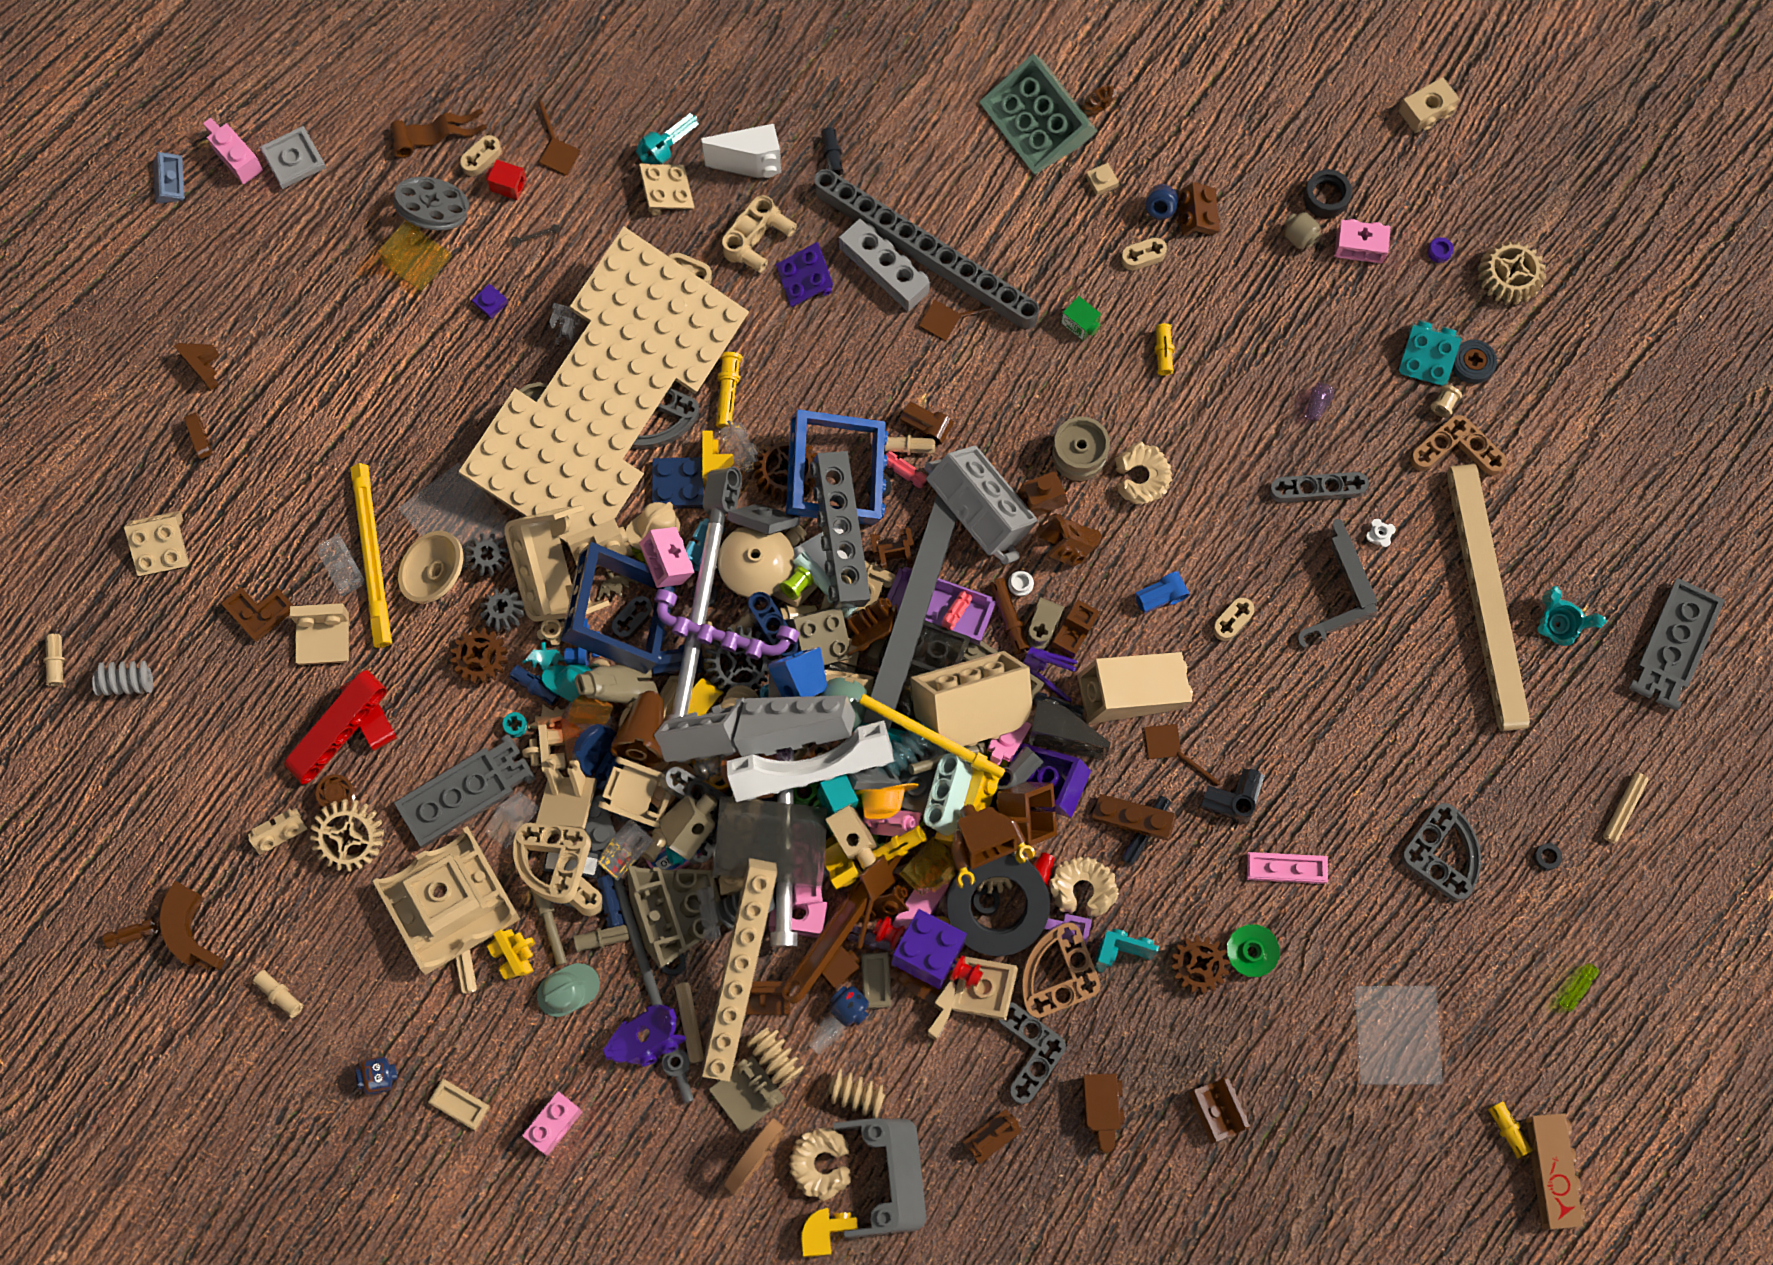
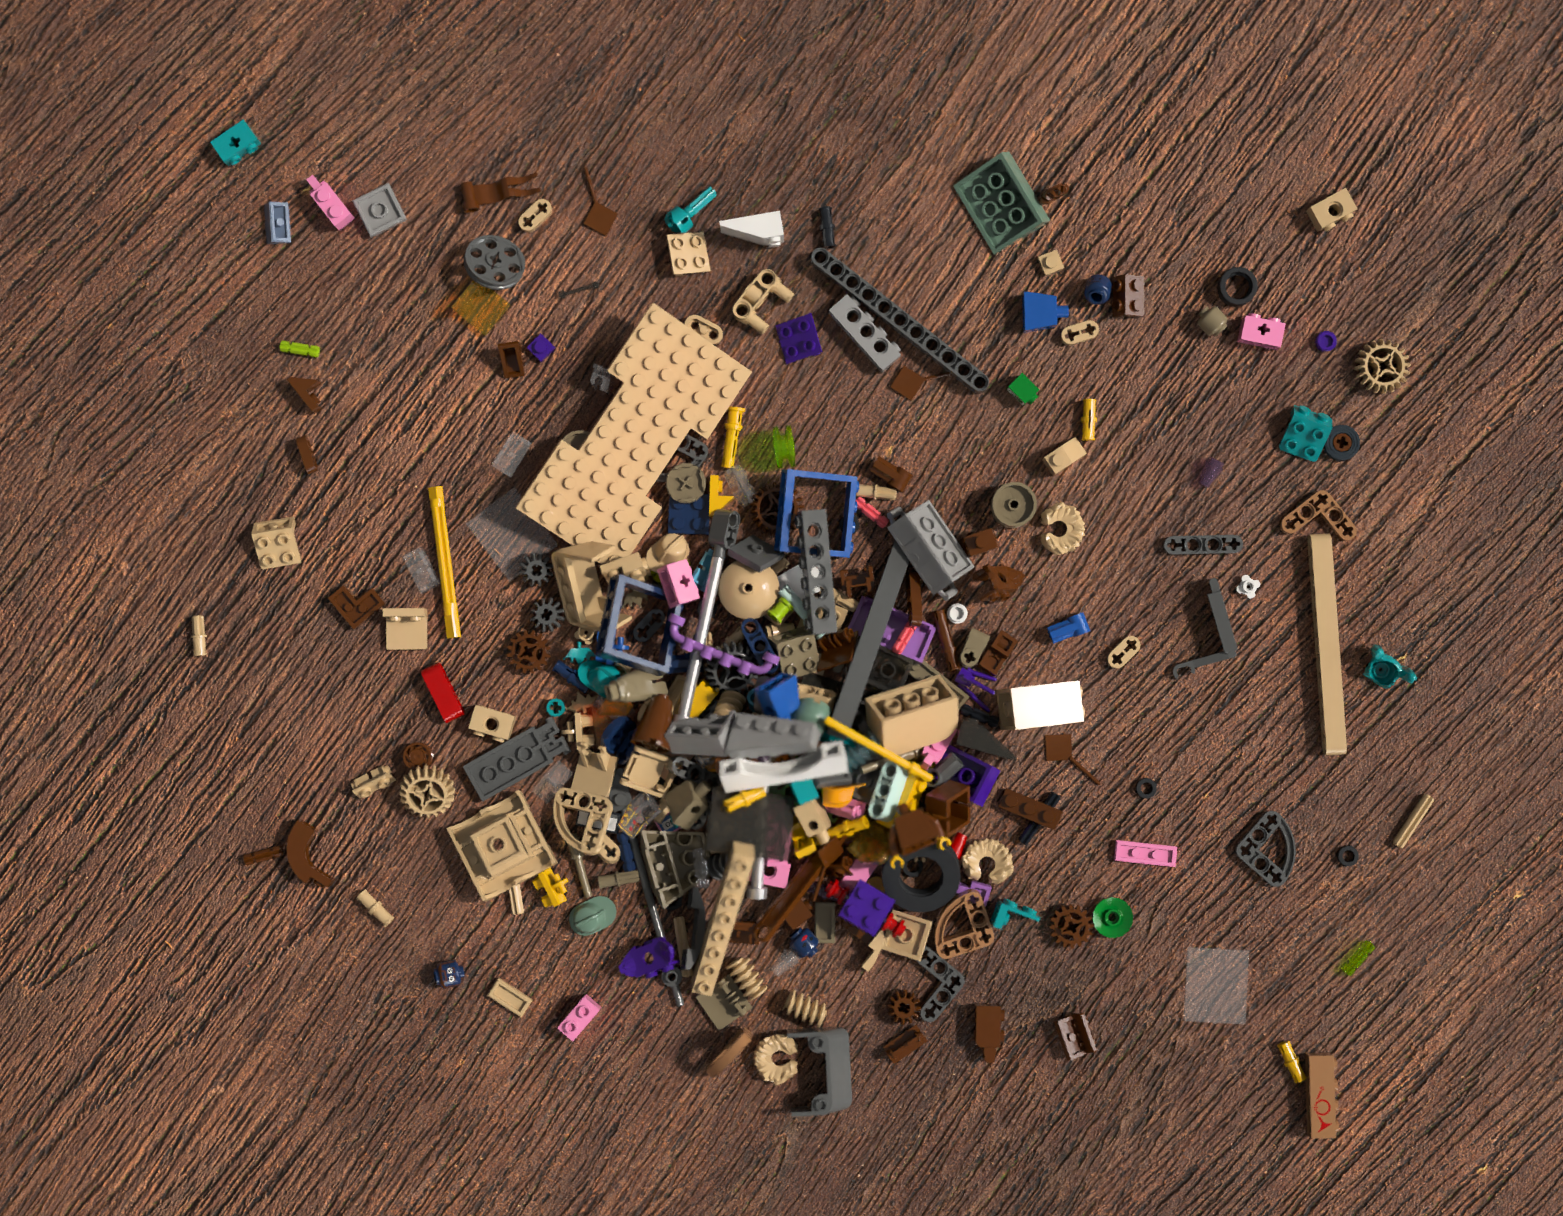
camera: 10 degrees right, 15 degrees up
(120, 91) = (226, 146): none -> teal brick
(122, 679) = (253, 656): light grey piece -> none
(192, 316) = (300, 349): none -> lime axle
(335, 727) = (418, 706): red beam -> none
(421, 736) = (504, 727): none -> tan brick
(430, 567) = (484, 578): tan dish -> none
(453, 311) = (511, 359): none -> reddish brown slope
(453, 421) = (511, 454): none -> clear hinge
(506, 179) = (555, 240): red brick -> none
(672, 443) = (685, 483): none -> dark tan tile
(704, 964) = (699, 924): none -> dark grey slope
(760, 807) = (743, 799): none -> yellow pin
(791, 392) = (784, 446): none -> clear neon green wheel
(817, 1231) = (773, 1103): yellow brick -> none
(965, 564) = (913, 599): none -> reddish brown beam
(984, 1093) = (900, 1013): none -> reddish brown gear
(1095, 231) = (1041, 311): none -> blue torso
(1136, 393) = (1064, 456): none -> tan slope
(1246, 794) = (1102, 801): black piece -> none
(1275, 794) = (1138, 788): none -> black piece
(1446, 401) = (1314, 477): tan bush -> none
(1676, 643) = (1472, 691): dark grey hinge -> none

